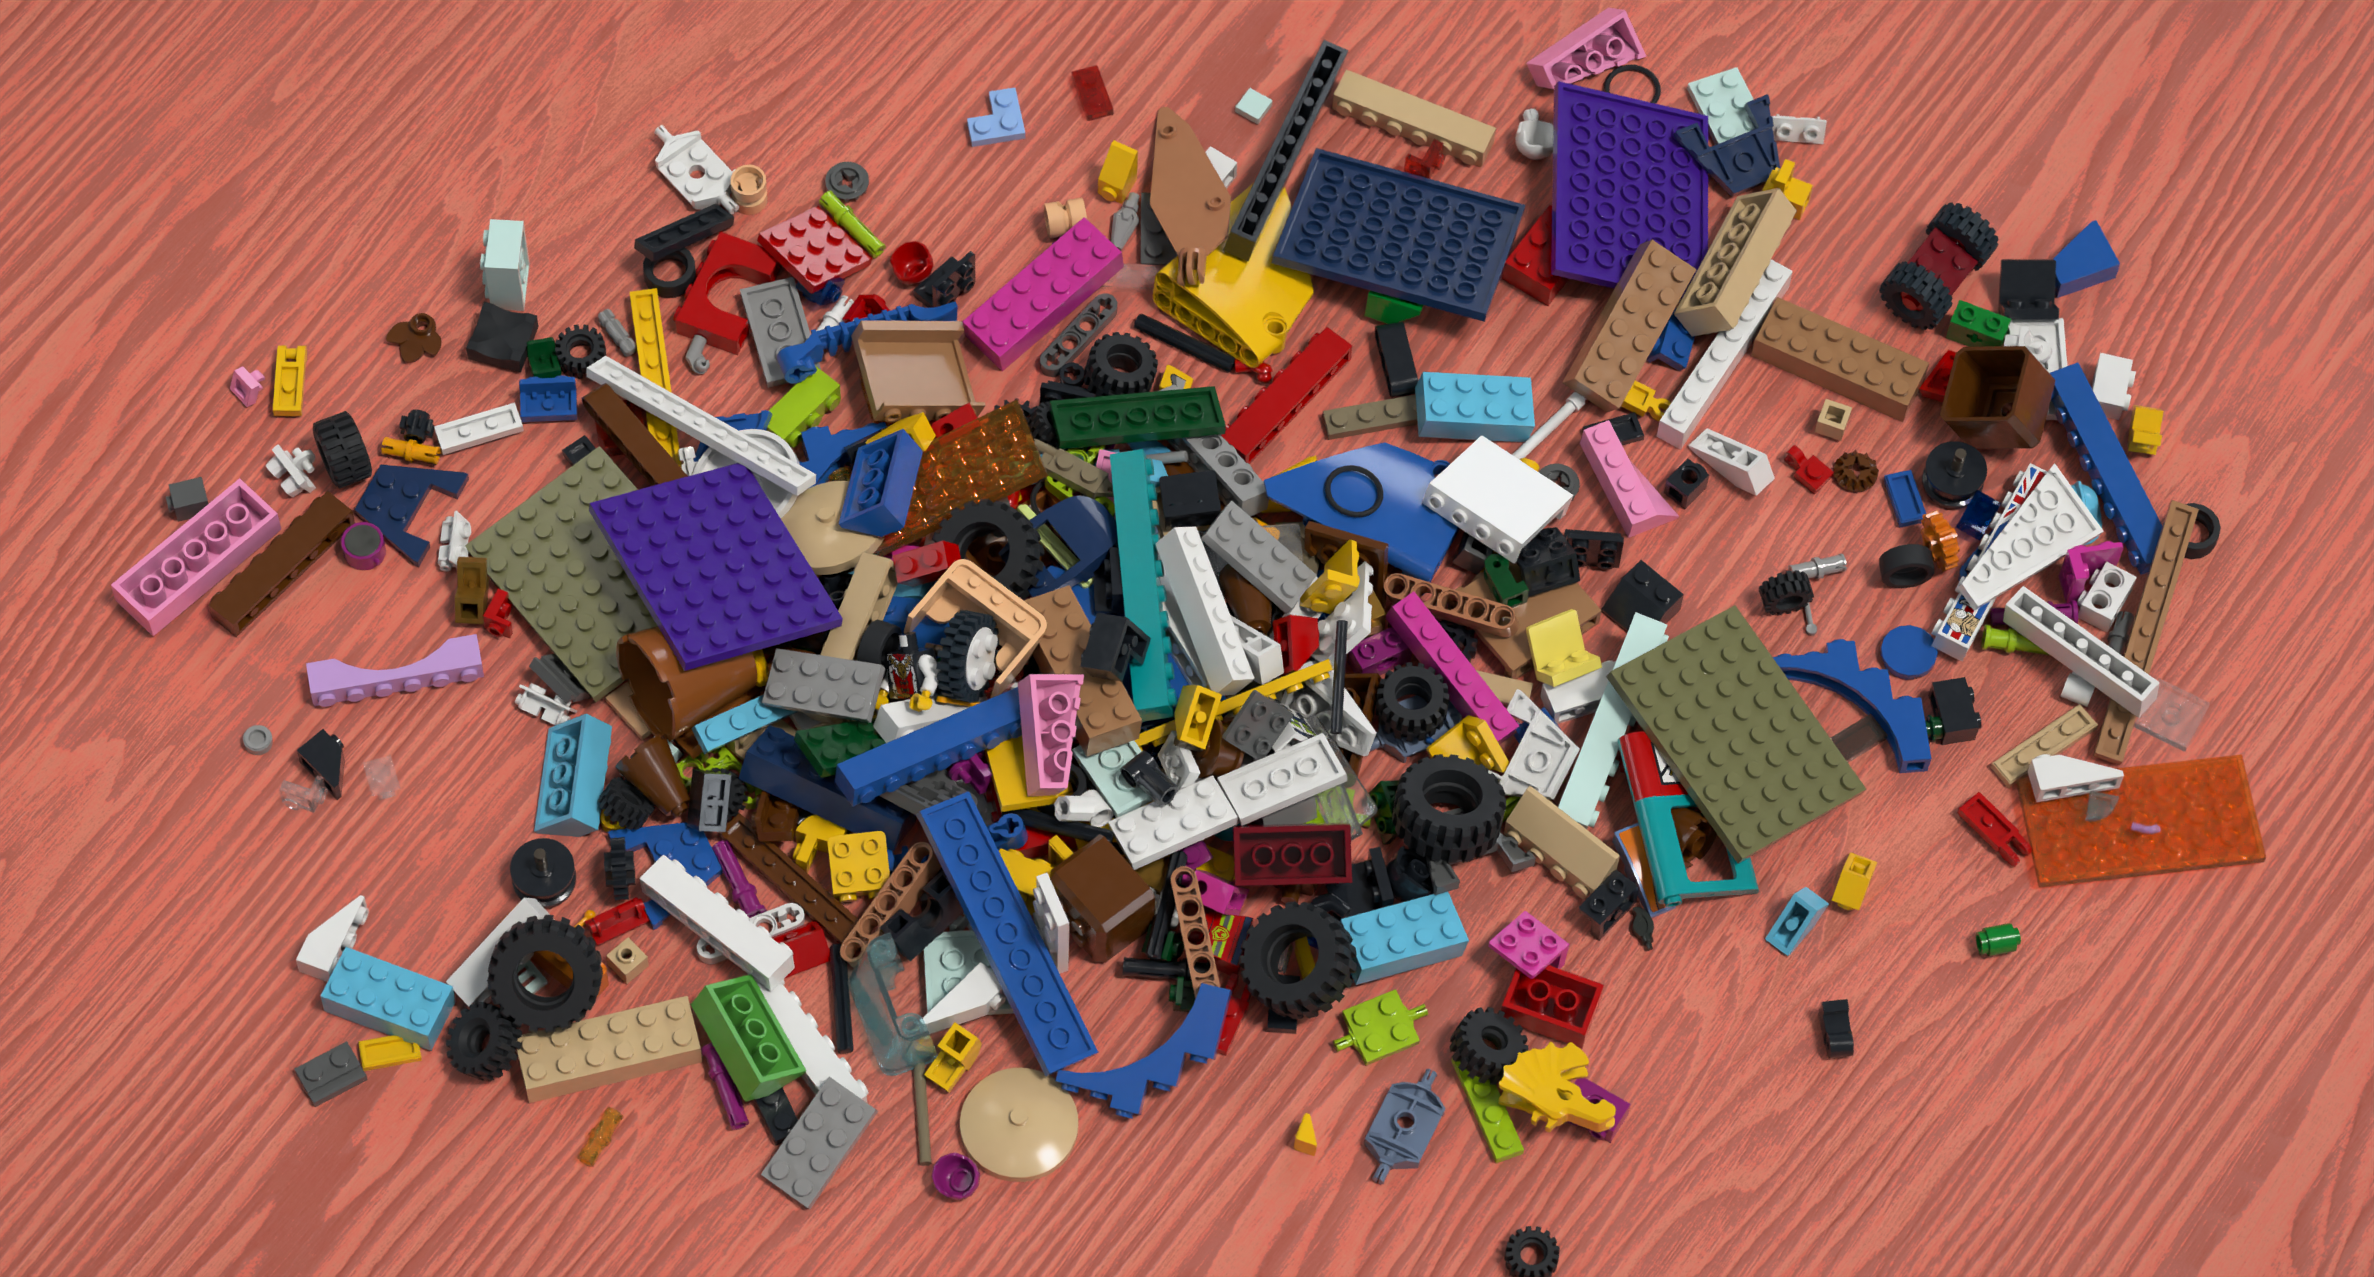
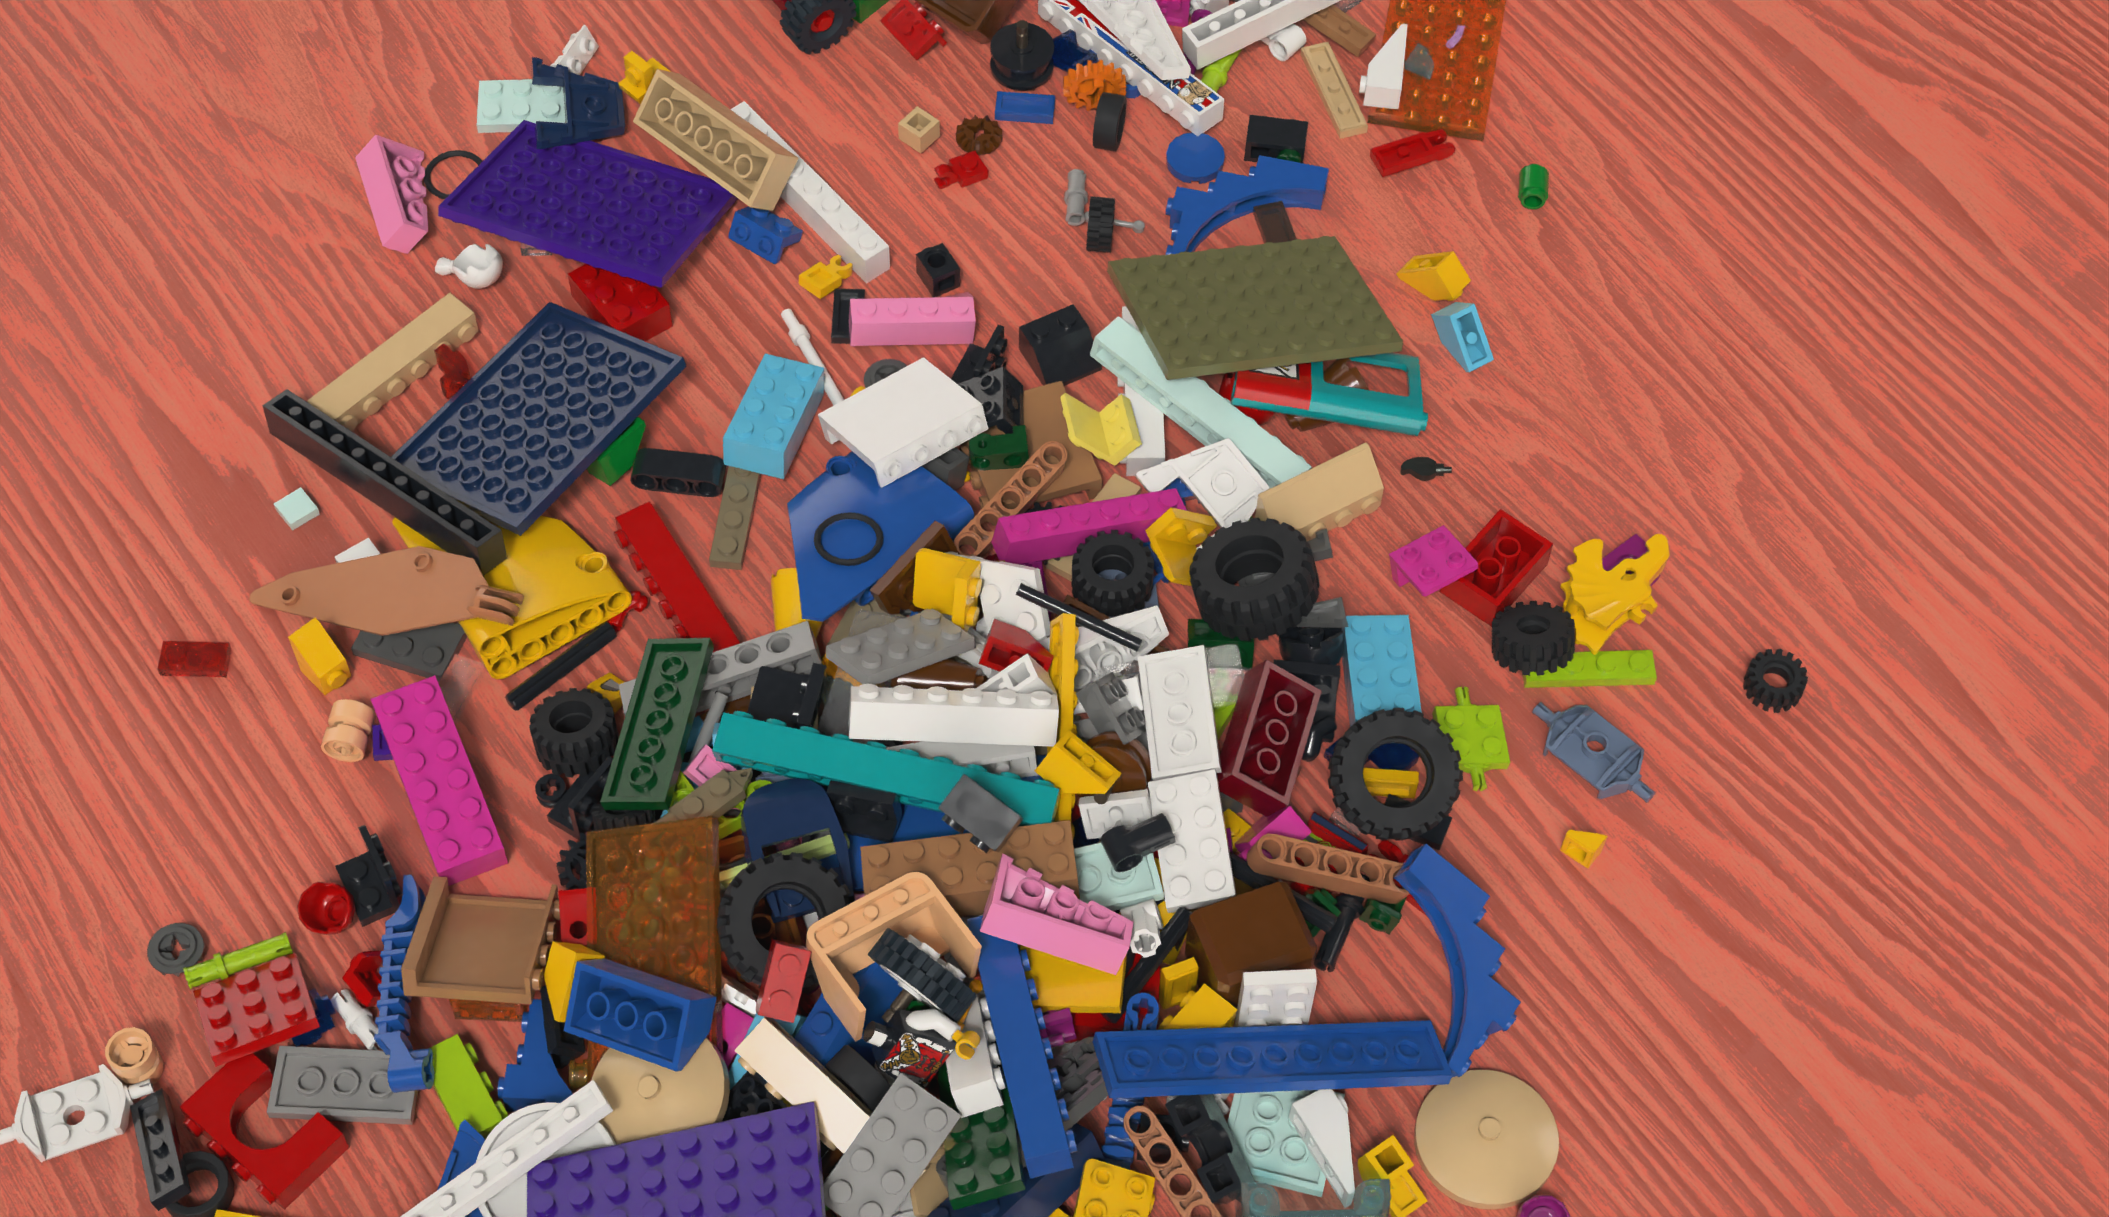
camera: 70 degrees left, 5 degrees down
(695, 357) = (331, 1196): light grey arm -> none
(1003, 124) = (185, 761): light blue plate -> none
(1079, 335) = (500, 768): dark grey beam -> none
(1125, 221) = (374, 675): light grey piece -> none
(1609, 903) = (1401, 482): black bracket -> none
(1629, 326) = (747, 248): medium nougat brick -> none
(1633, 854) = (1385, 446): slope -> none
(1735, 461) = (929, 223): white slope -> none
(1836, 1028) = (1592, 343): black leg -> none
(1840, 359) = (857, 100): medium nougat brick -> none

